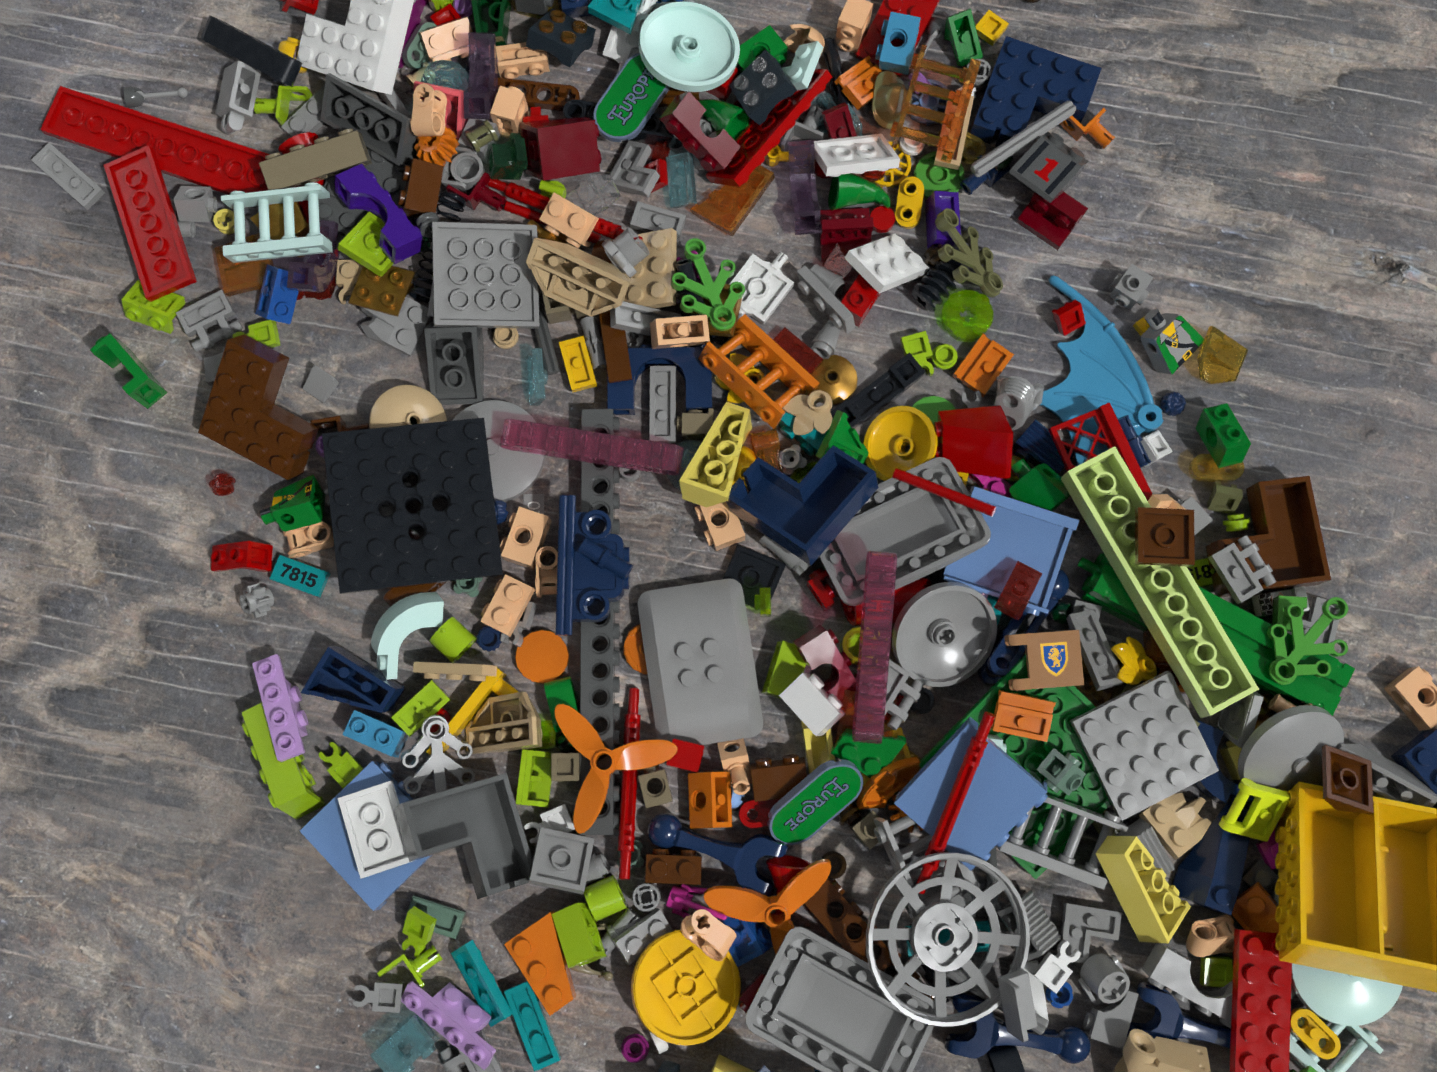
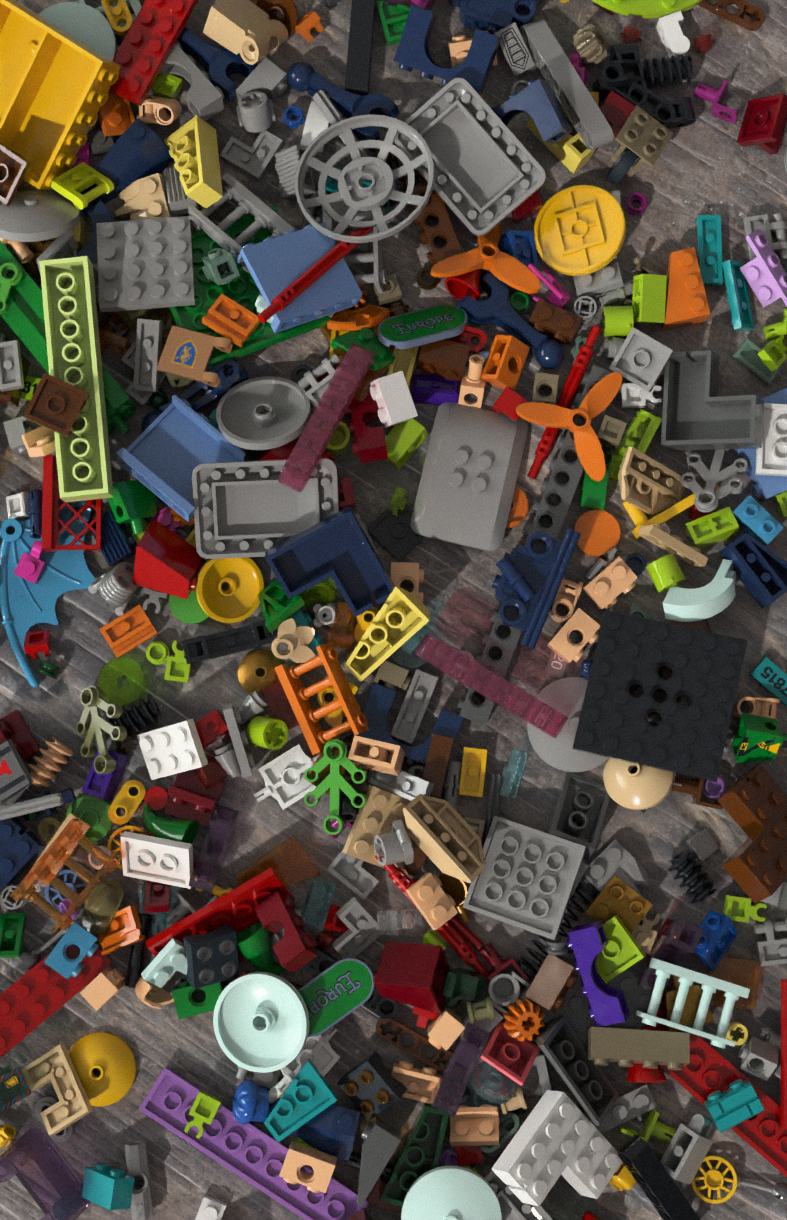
camera: 155 degrees left, 5 degrees up
(203, 83) = (714, 1180): none -> yellow wheel
(205, 149) = (733, 1105): none -> teal brick
(318, 348) = (691, 876): none -> black piece
(428, 114) = (521, 1046): light nougat piece -> none
(505, 337) = (527, 819): tan plate -> none
(709, 934) = (547, 259): light nougat piece -> none
(721, 875) = (520, 302): none -> green plate
(775, 742) = (434, 389): none -> dark purple slope
(799, 318) = (267, 732): none -> lime piece
(944, 492) = (214, 523): red bar -> none
(1002, 208) = (49, 762): none -> light nougat piece
(1017, 1003) = (331, 113): light grey panel -> none
(1018, 590) = (190, 420): clear red plate -> none
(1045, 297) = (49, 669): none -> dark green bush
(1053, 969) = (290, 132): white plate -> none
(1112, 388) = (30, 566): none -> dark pink plate
(1136, 663) = (121, 331): yellow plate -> none

